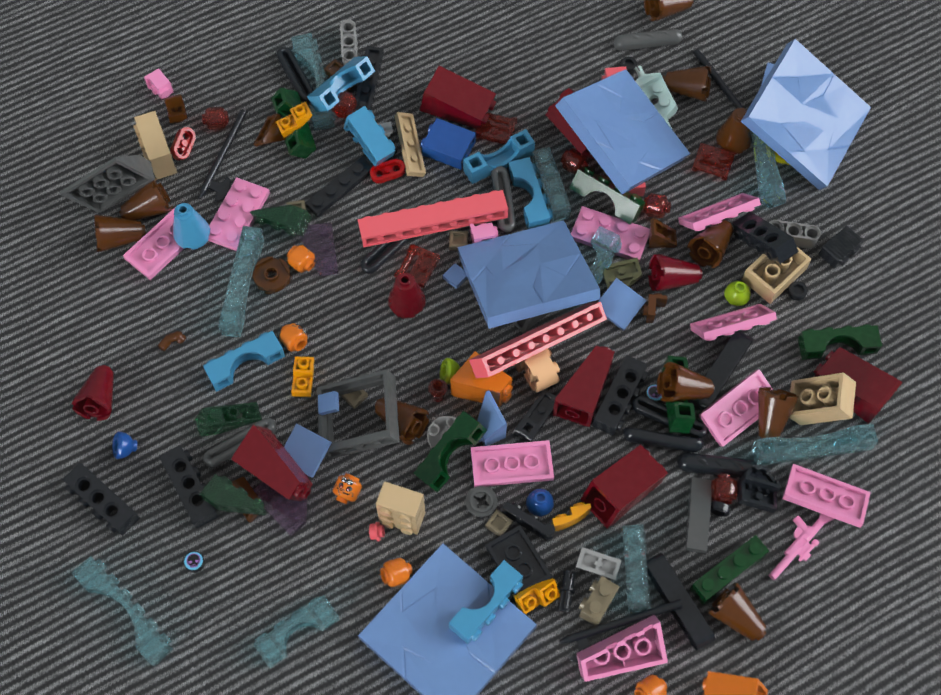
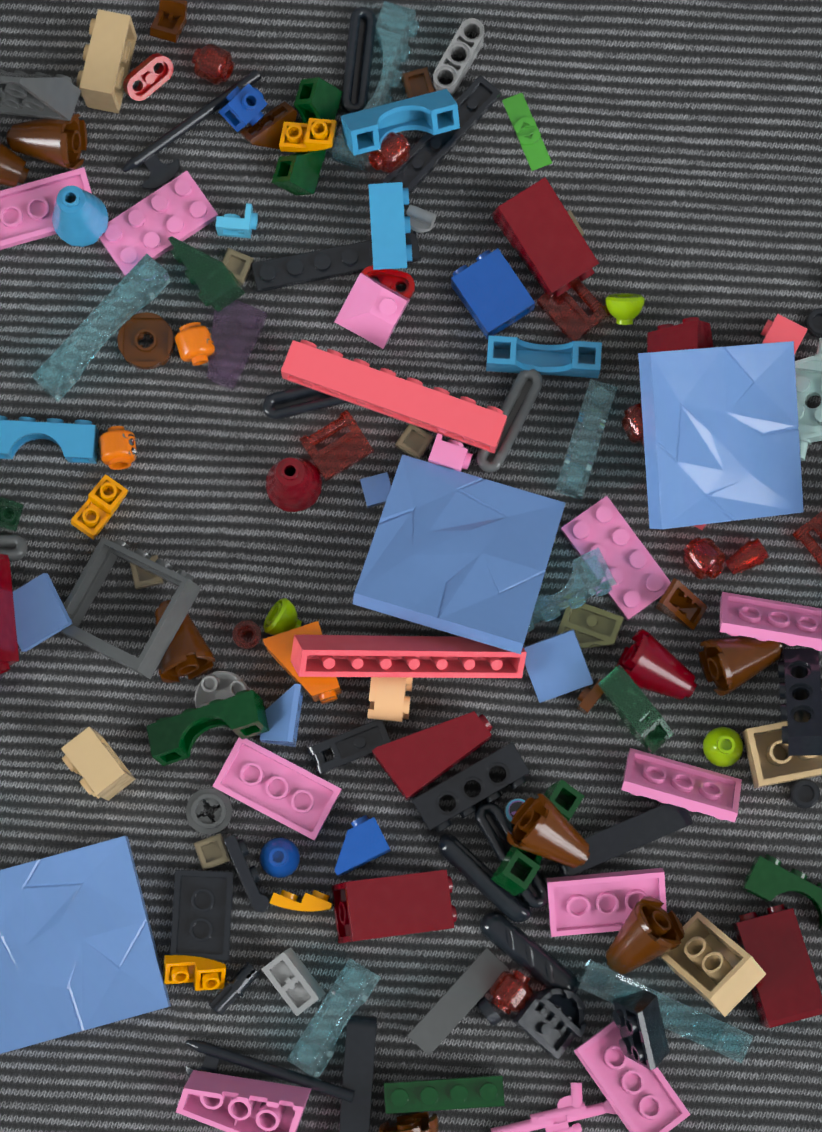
camera: 35 degrees right, 15 degrees up
(248, 128) = (243, 107): none -> blue brick
(283, 189) = (235, 226): none -> medium azure bracket
(328, 403) = (100, 569): medium blue tile -> none
(347, 488) = (58, 690): orange head -> none
(376, 531) = (57, 768): coral plate -> none
(389, 186) = (372, 310): none -> bright pink slope
(396, 572) = (49, 833): orange head -> none
(409, 62) = (527, 131): none -> bright green piece
(410, 144) = (441, 262): tan plate -> none
(469, 622) = (87, 954): dark azure arch -> none
(523, 111) = (624, 307): none -> lime brick
(524, 176) = (538, 468): dark azure arch -> none
(584, 459) = (361, 845): none -> blue slope
(597, 604) = (260, 1028): dark tan brick -> none
(626, 206) = (630, 471): arch -> none
(678, 192) = (747, 557): none -> clear red cone
(683, 298) = (635, 709): none -> clear green slope
(811, 457) = (641, 1028): none -> black slope

